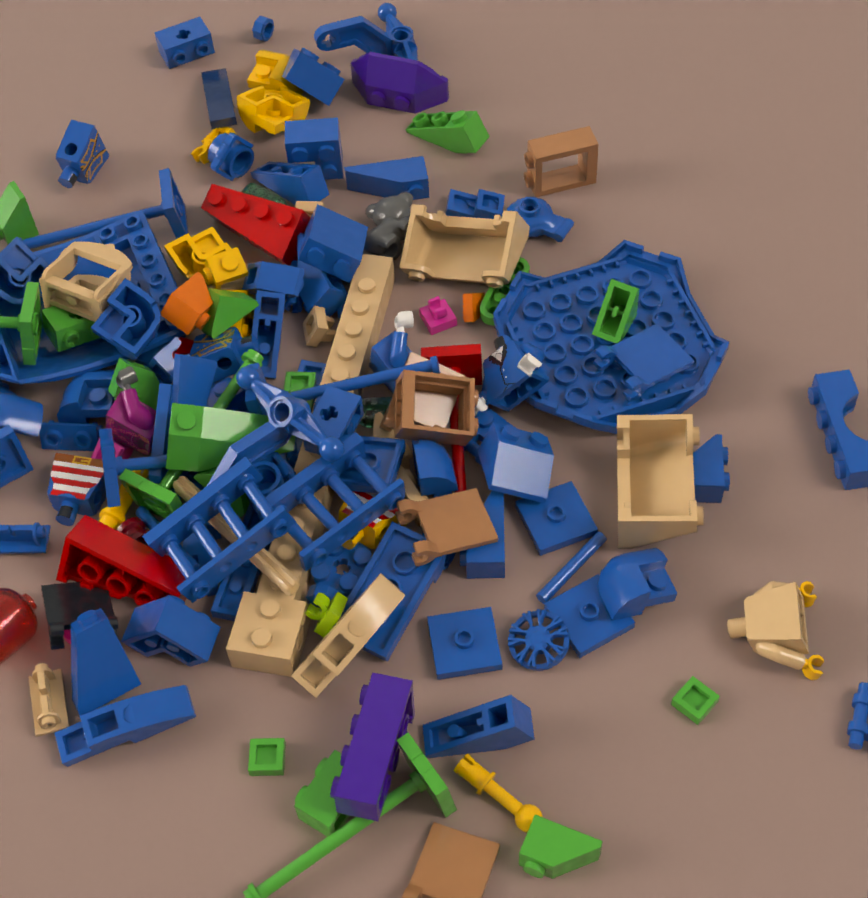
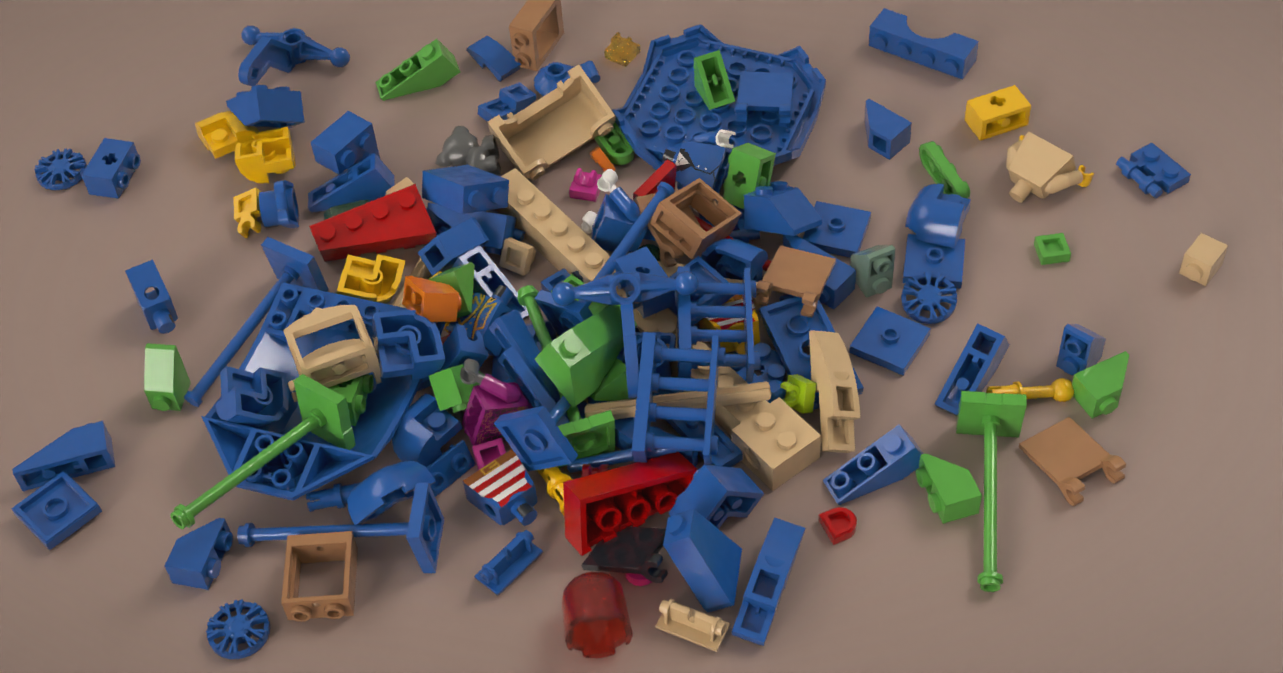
camera: 50 degrees left, 5 degrees down
(162, 17) = (60, 169): none -> blue wheel
(218, 98) = (204, 179): dark blue slope -> none
(224, 268) = (409, 262): yellow bracket -> none
(230, 738) = (838, 524): none -> red tile
(263, 28) = (163, 113): blue tile -> none
(266, 757) = (876, 510): bright green tile -> none
(306, 724) = (875, 467): none -> blue slope
(374, 746) = (947, 423): dark purple wedge -> none
(390, 178) = (425, 131): blue slope -> none
(398, 83) = (335, 70): dark purple wedge -> none
(513, 161) = (494, 56): none -> blue slope
(523, 574) = (874, 269): none -> sand green slope
(529, 406) = (748, 169): none -> bright green brick
(571, 567) = (883, 238): blue bar -> none
(576, 800) = (1079, 349): none -> blue slope
(611, 230) = (622, 50): none -> clear yellow tile
(656, 478) = (870, 155): tan windscreen -> none
(698, 553) = (941, 170): none -> bright green plate
(798, 839) = (1203, 259): none -> tan brick
(819, 544) = (997, 112): none -> yellow brick

